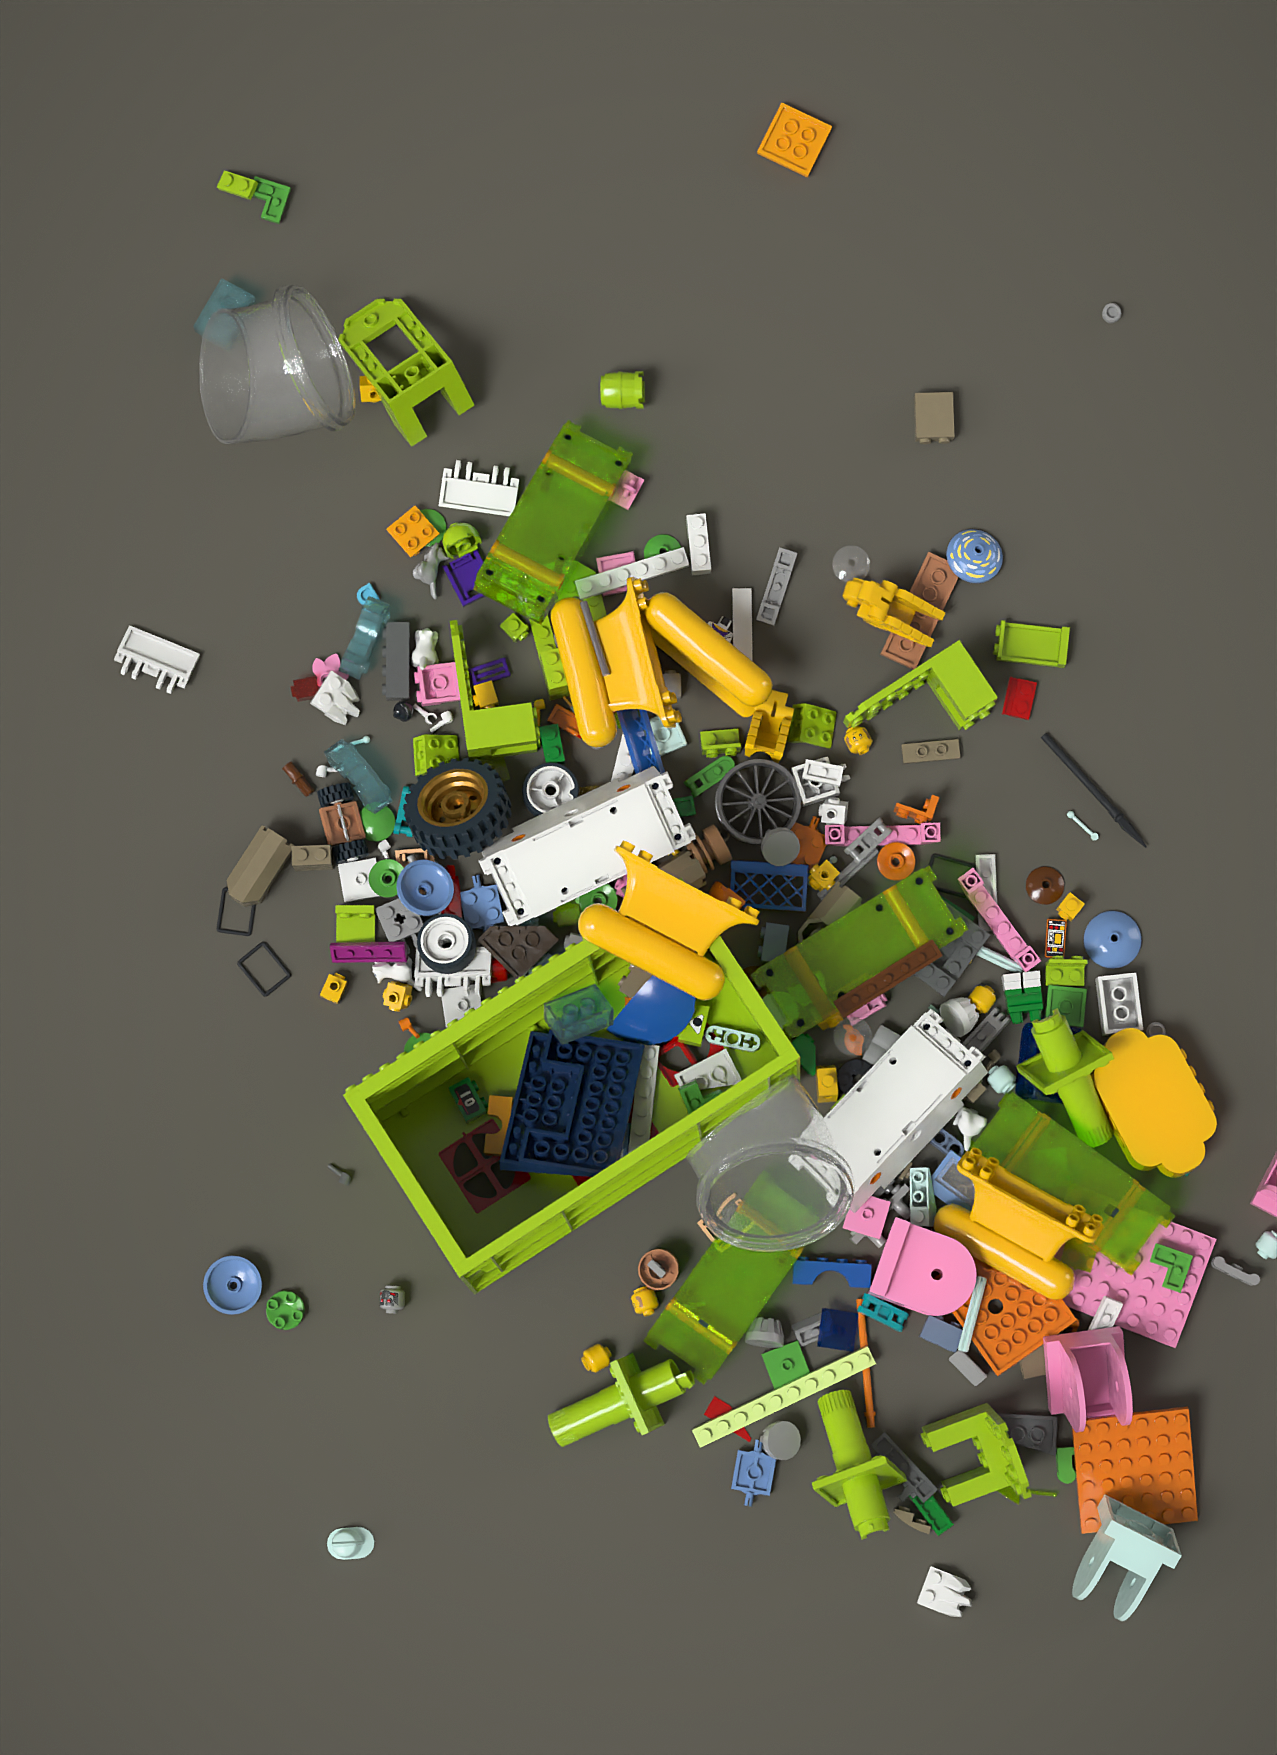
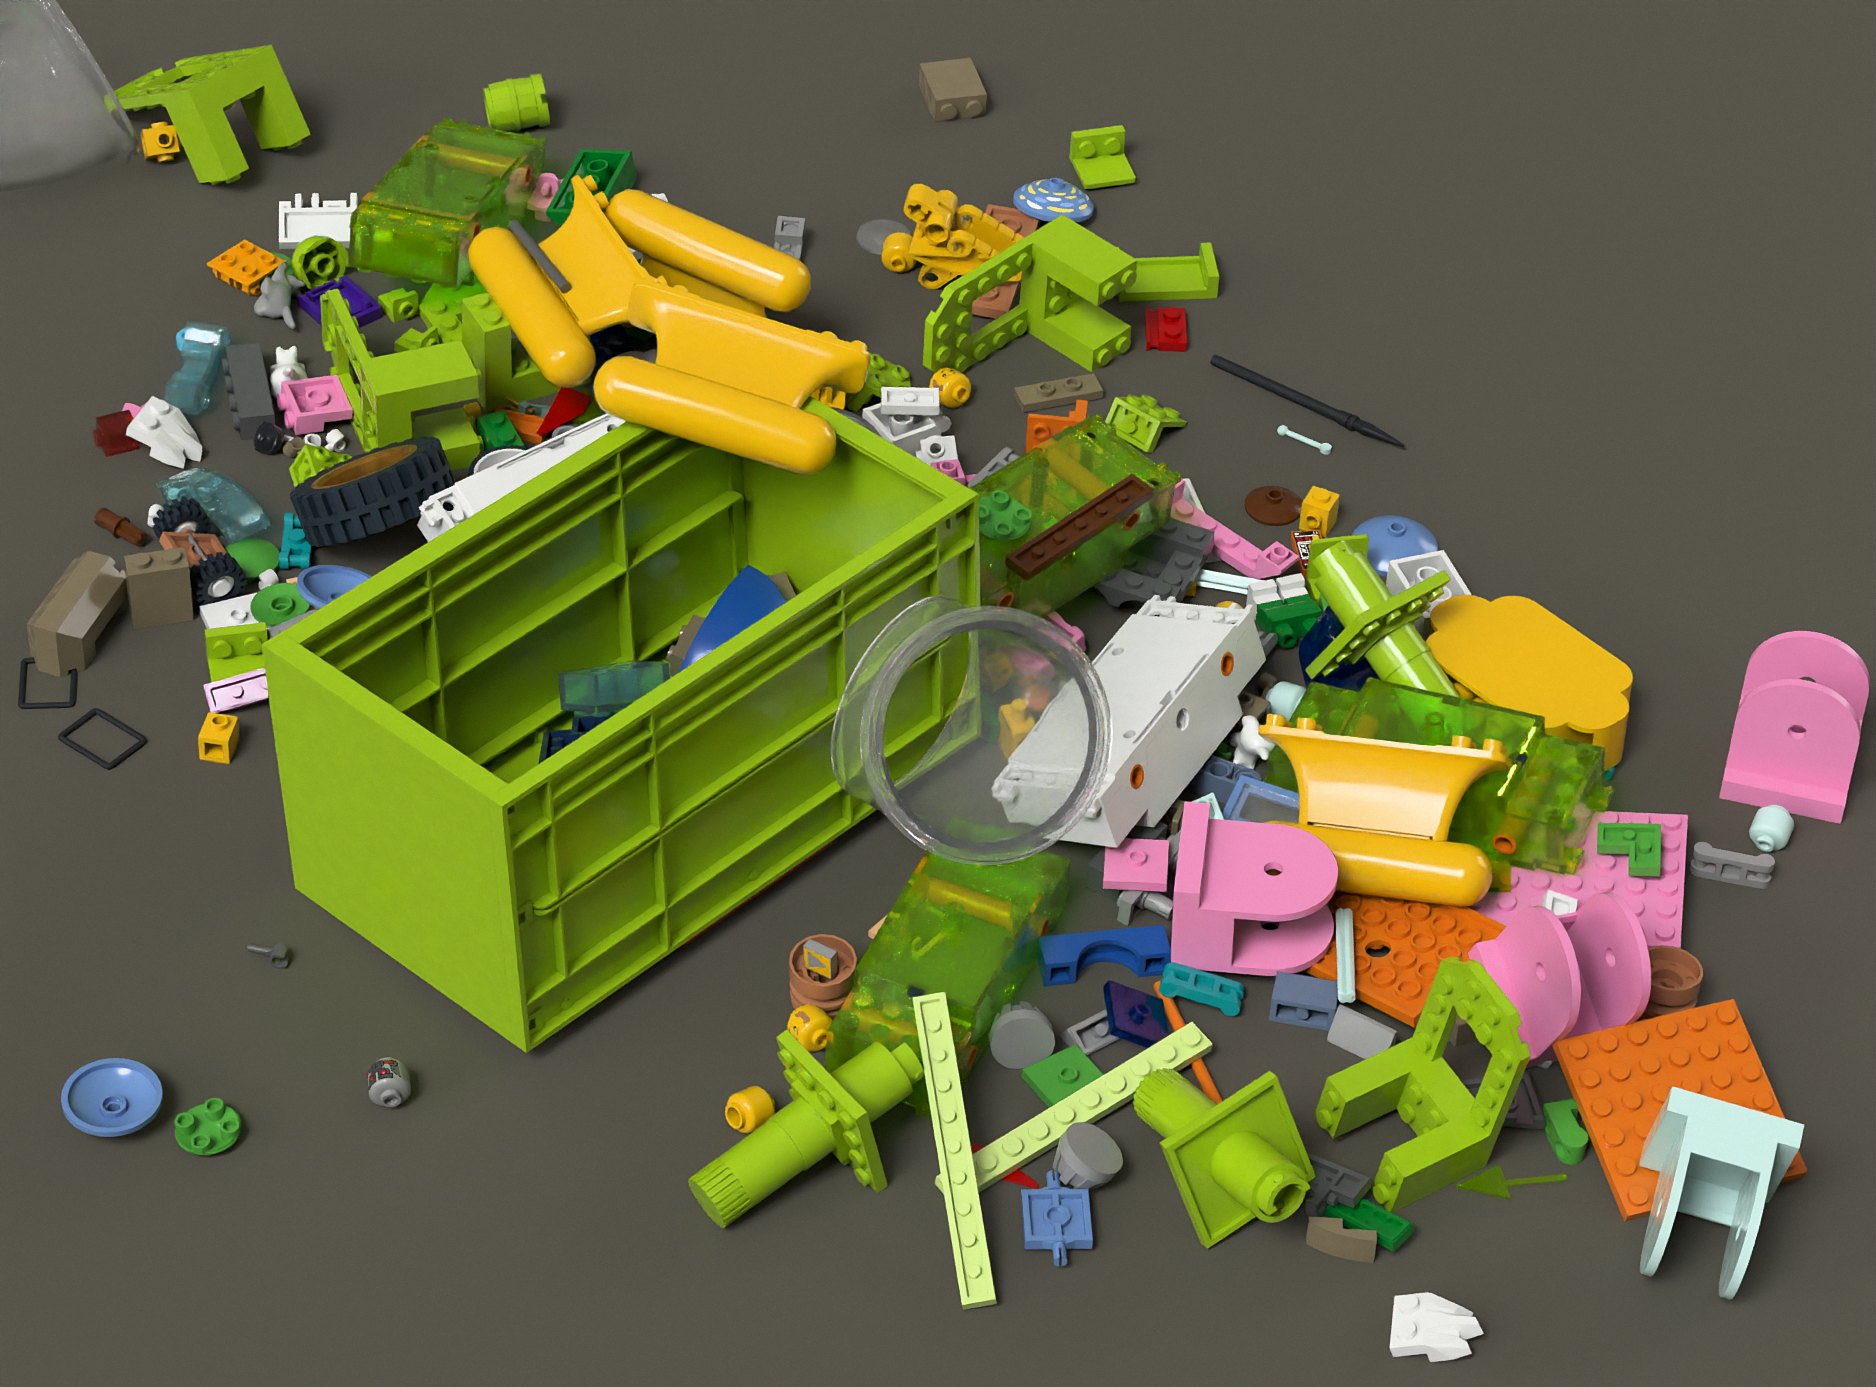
camera: 10 degrees left, 40 degrees down
(421, 724) = (293, 448): none -> dark tan hand
(657, 497) = (610, 169): none -> green slope
(701, 1431) = (954, 1151): none -> yellowish green plate
(838, 962) = (1003, 517): none -> bright green dish
(980, 792) = (1141, 420): none -> lime bracket
(1019, 517) = (1100, 157): none -> lime bracket
(1165, 1364) = (1674, 981): none -> nougat wheel

